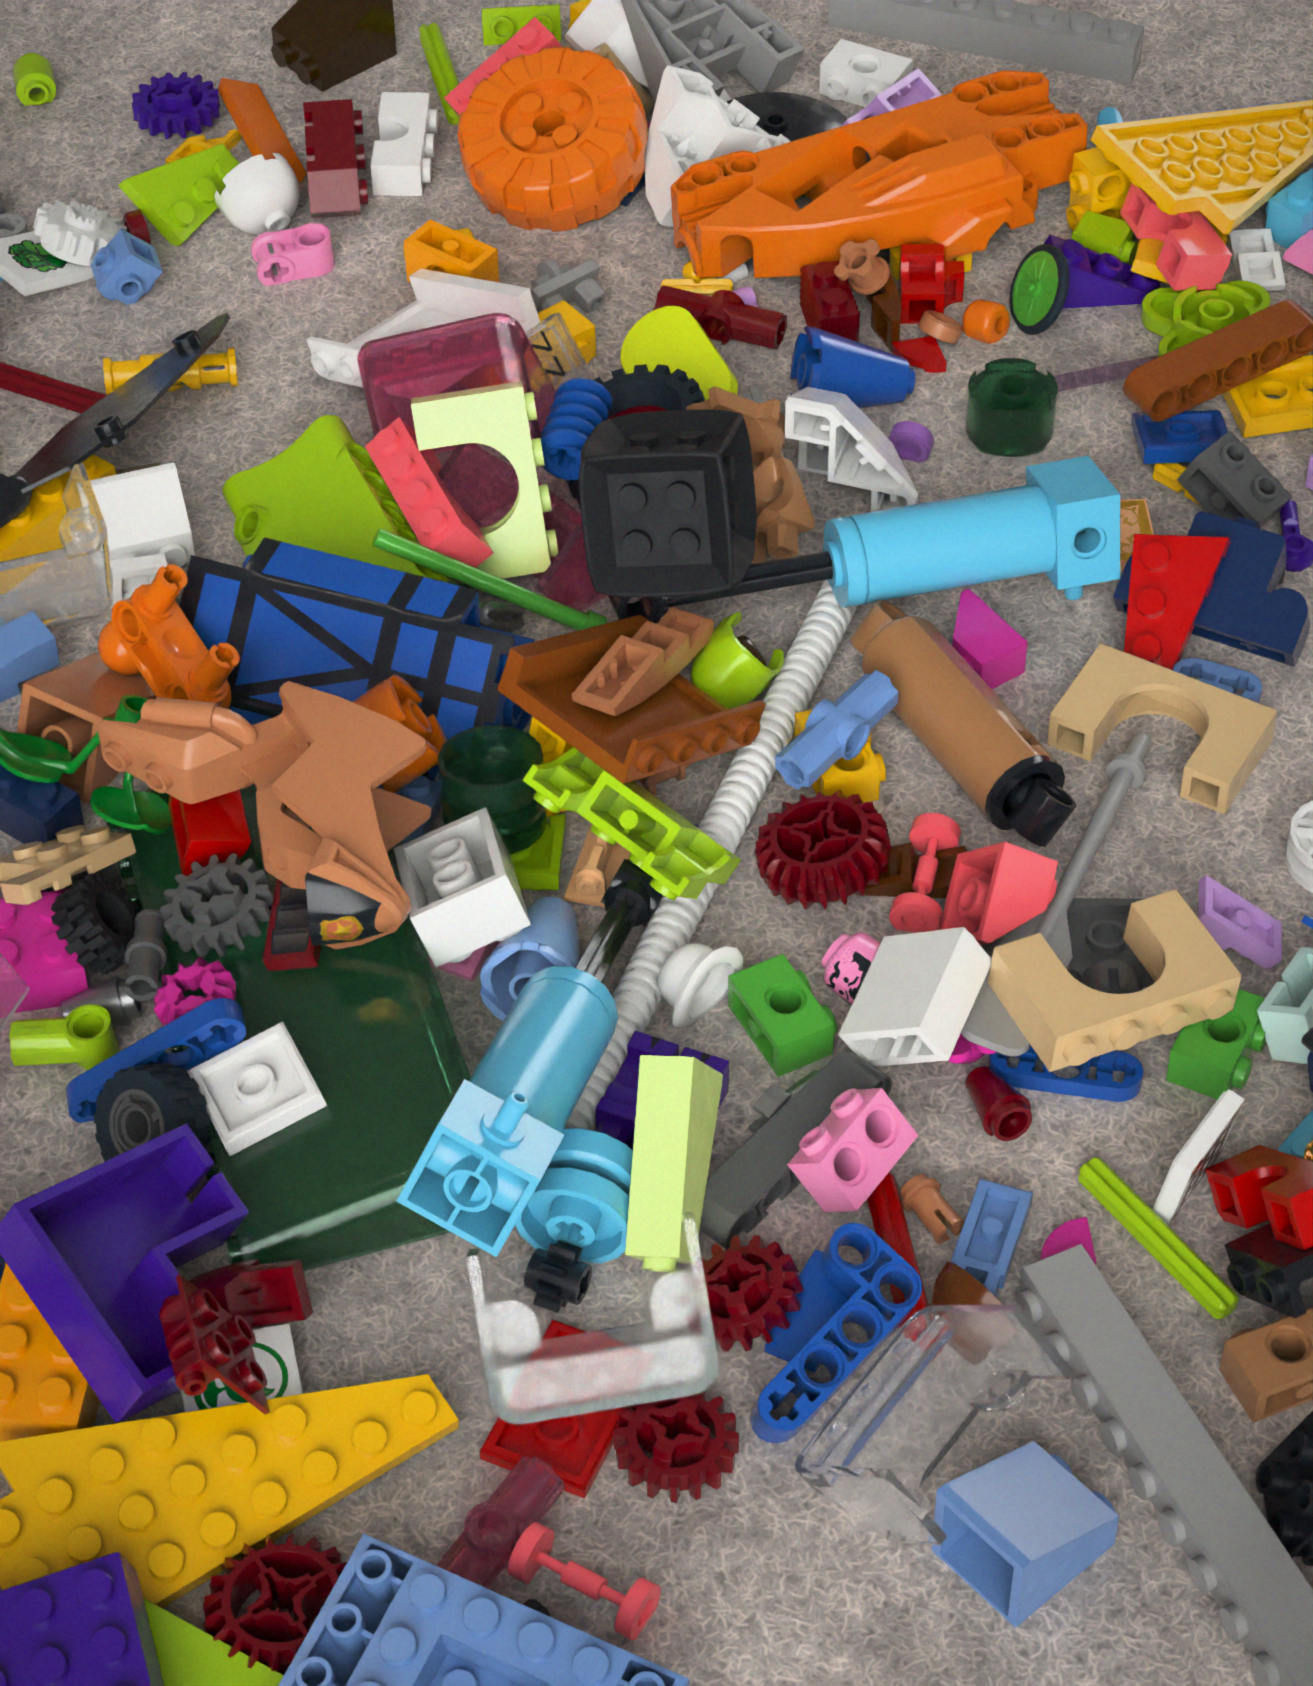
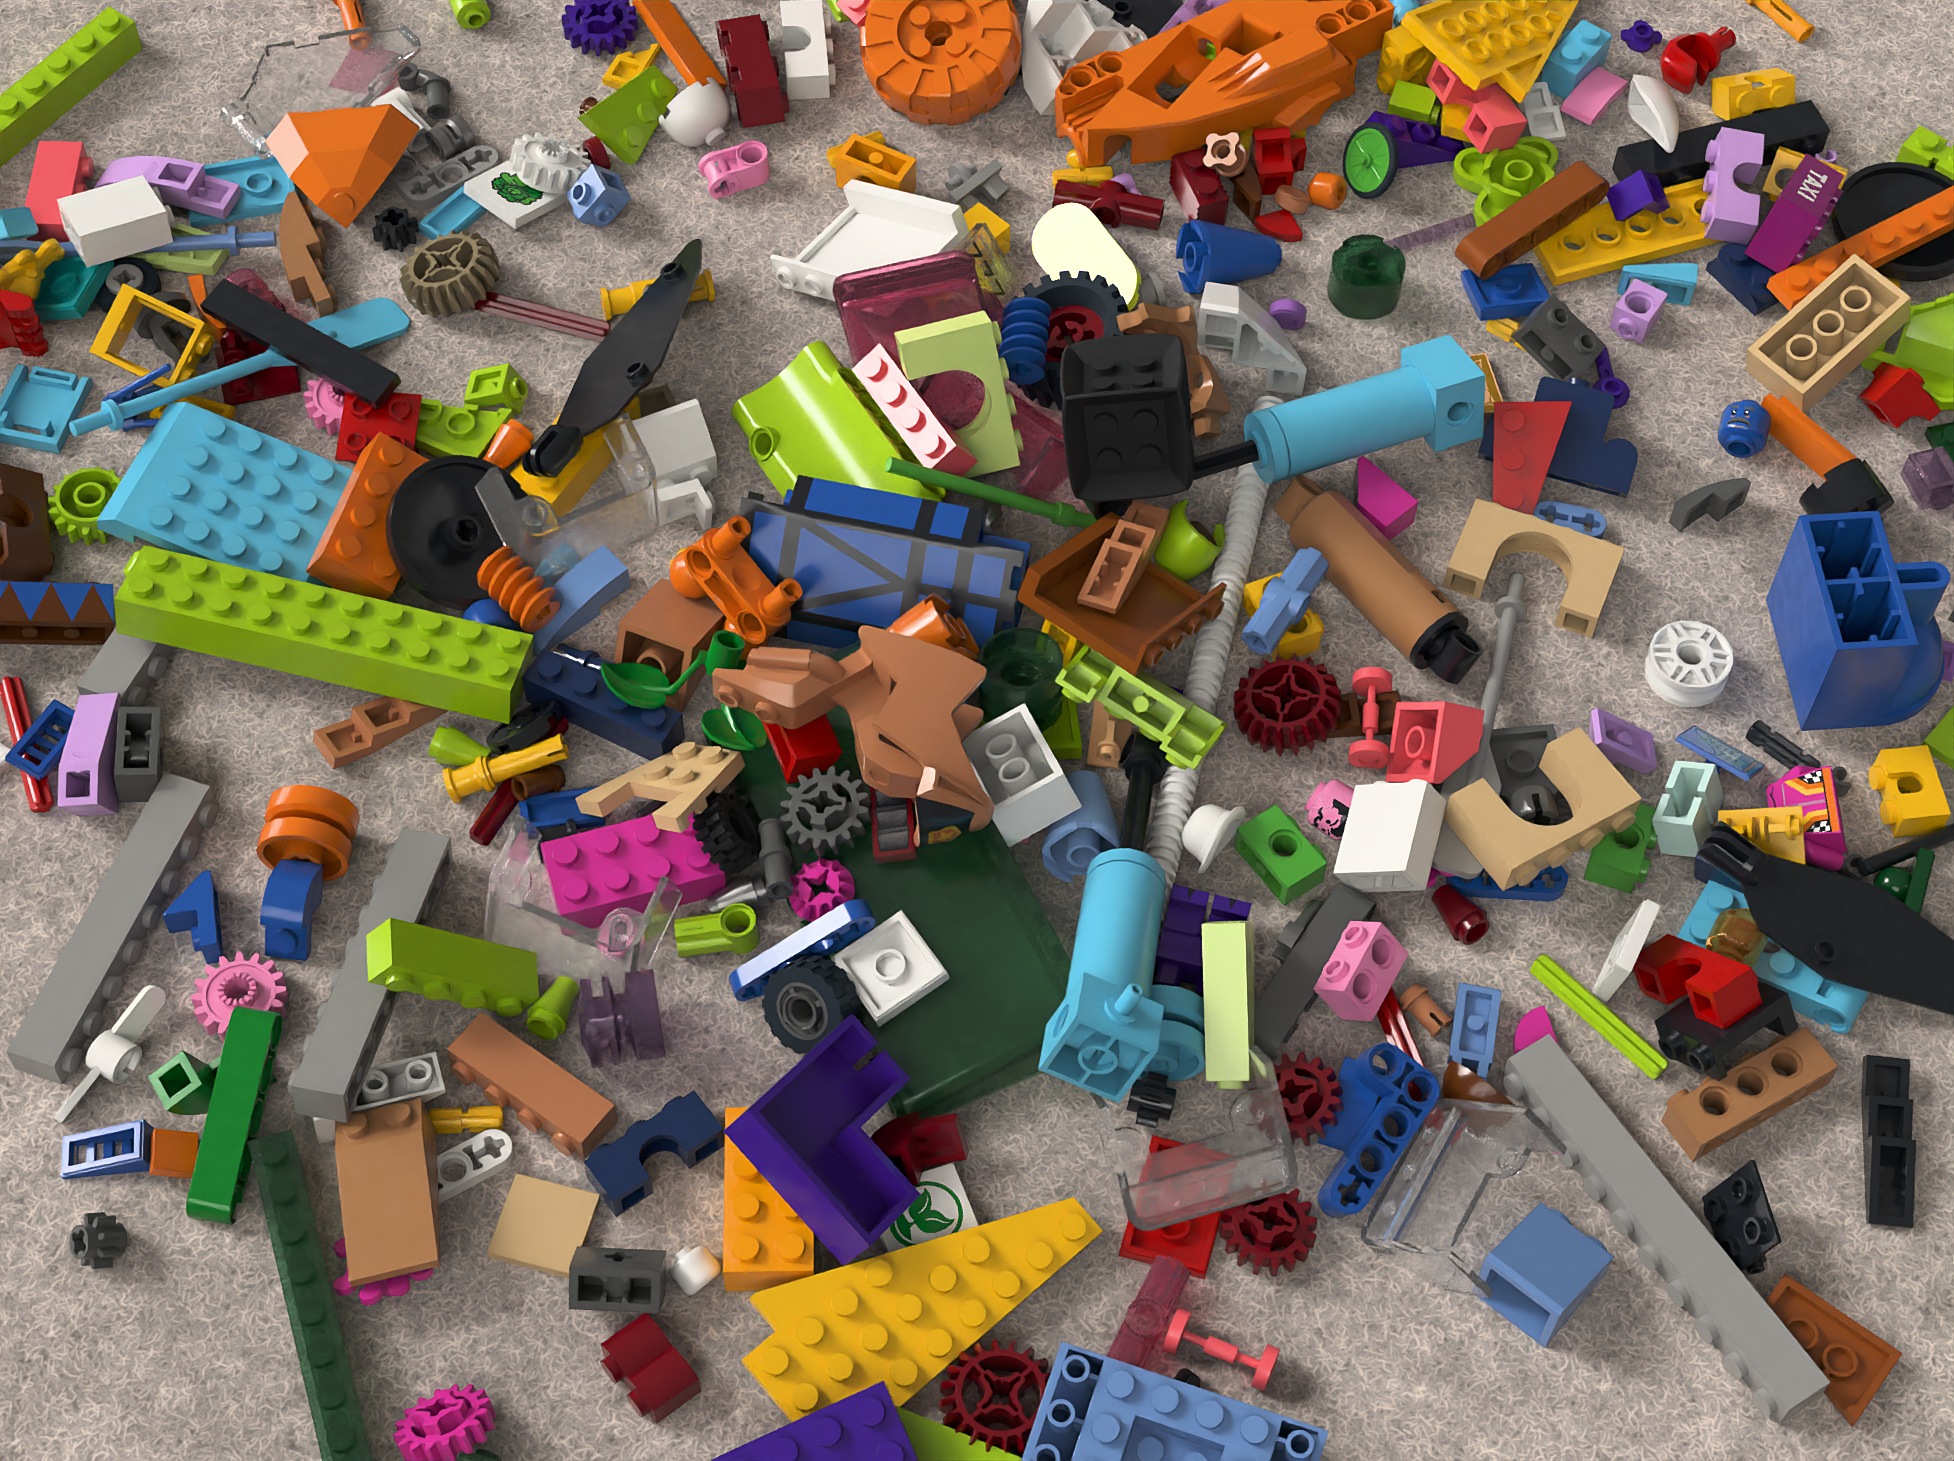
camera: 10 degrees left, 10 degrees up
(210, 1345) = (909, 1199): dark red hinge -> none

